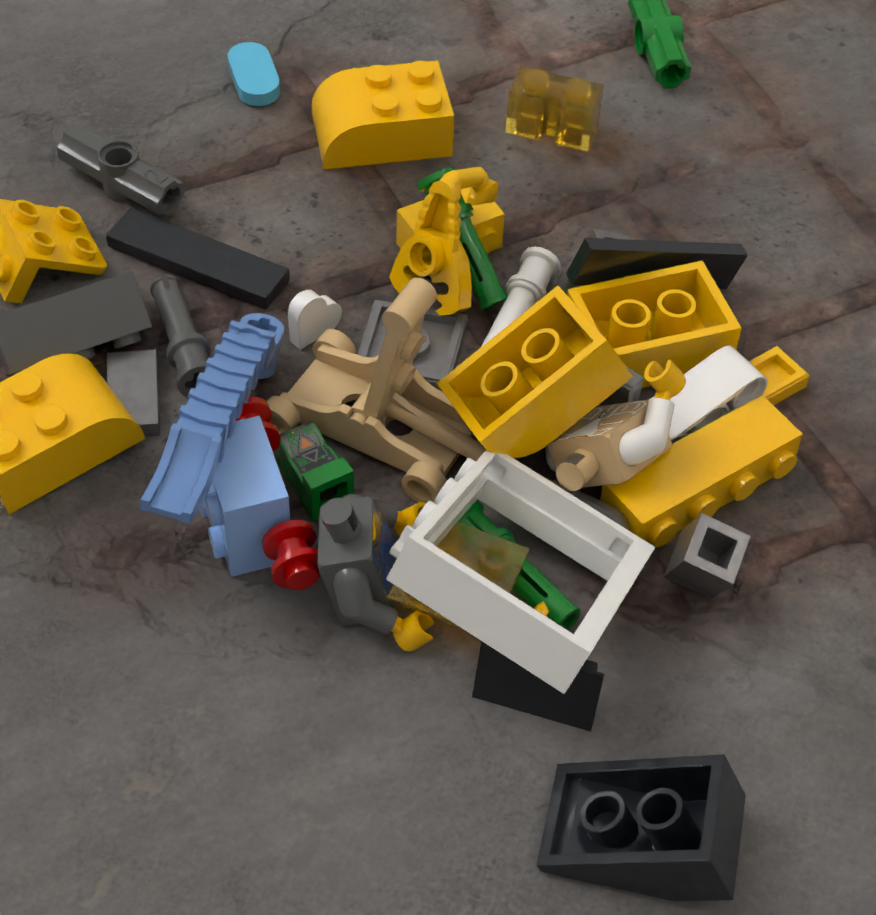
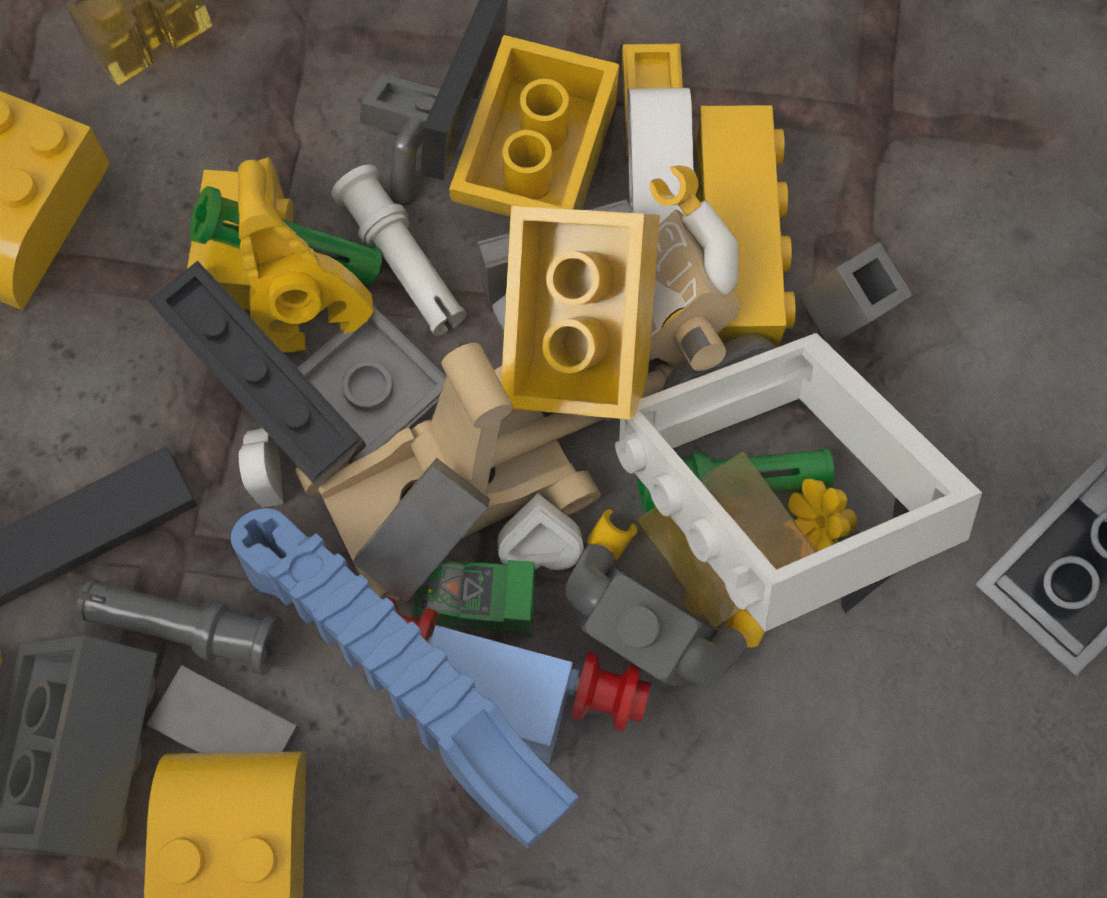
camera: 55 degrees left, 20 degrees up
(322, 389) = (421, 530): none -> flat silver tile
(363, 273) = (258, 374): none -> black tile
(380, 476) = (541, 536): none -> white tile

